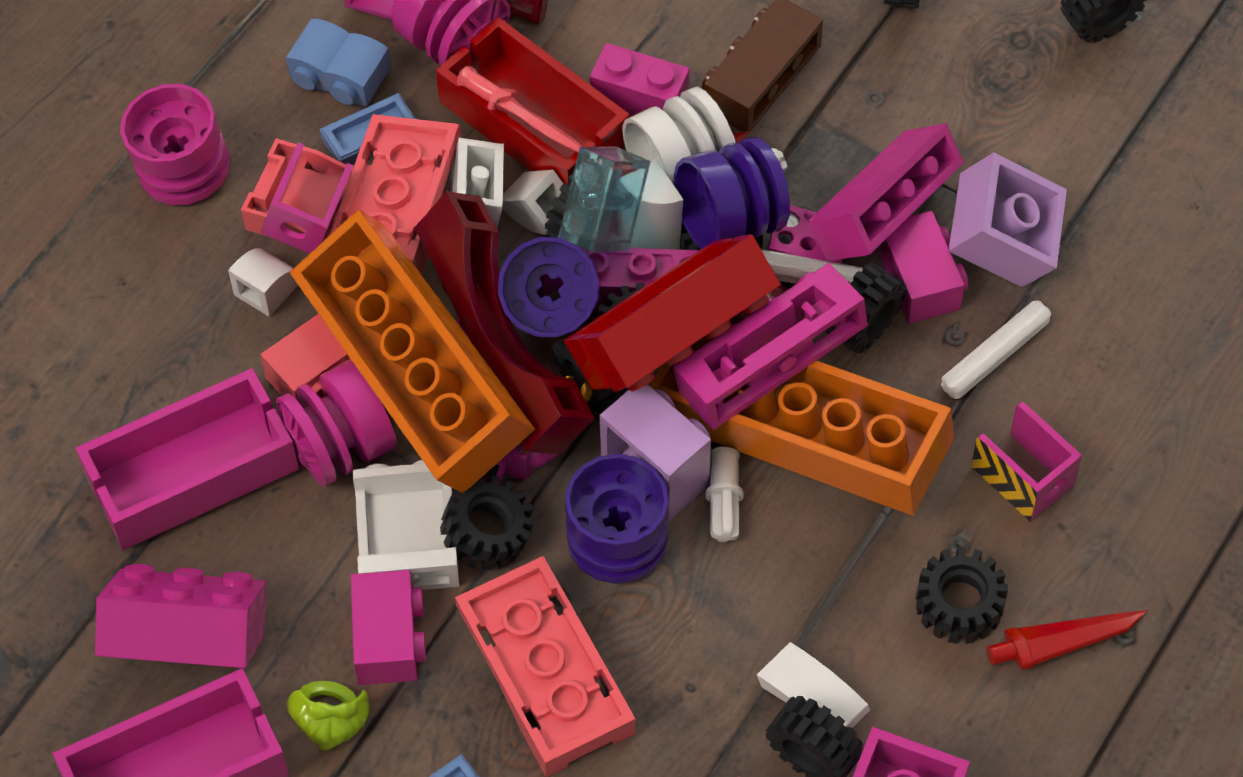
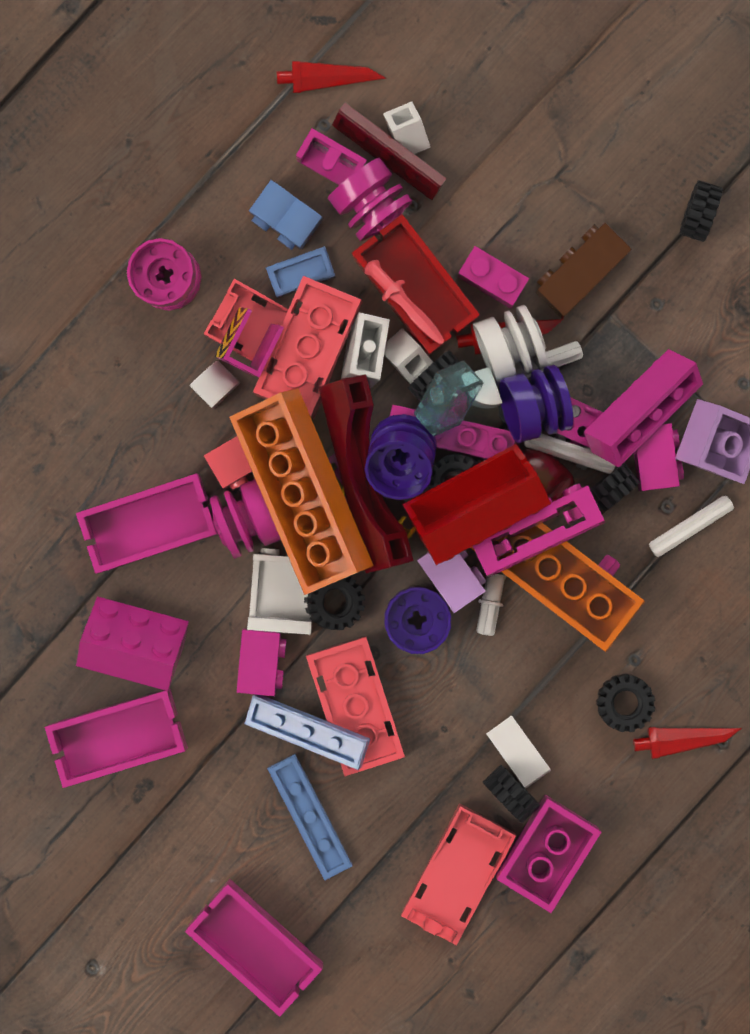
camera: 10 degrees right, 30 degrees up
(326, 723) = (212, 724): lime piece -> none
(475, 706) = (307, 731): none -> tile
(1012, 481) = (702, 640): dark pink piece -> none

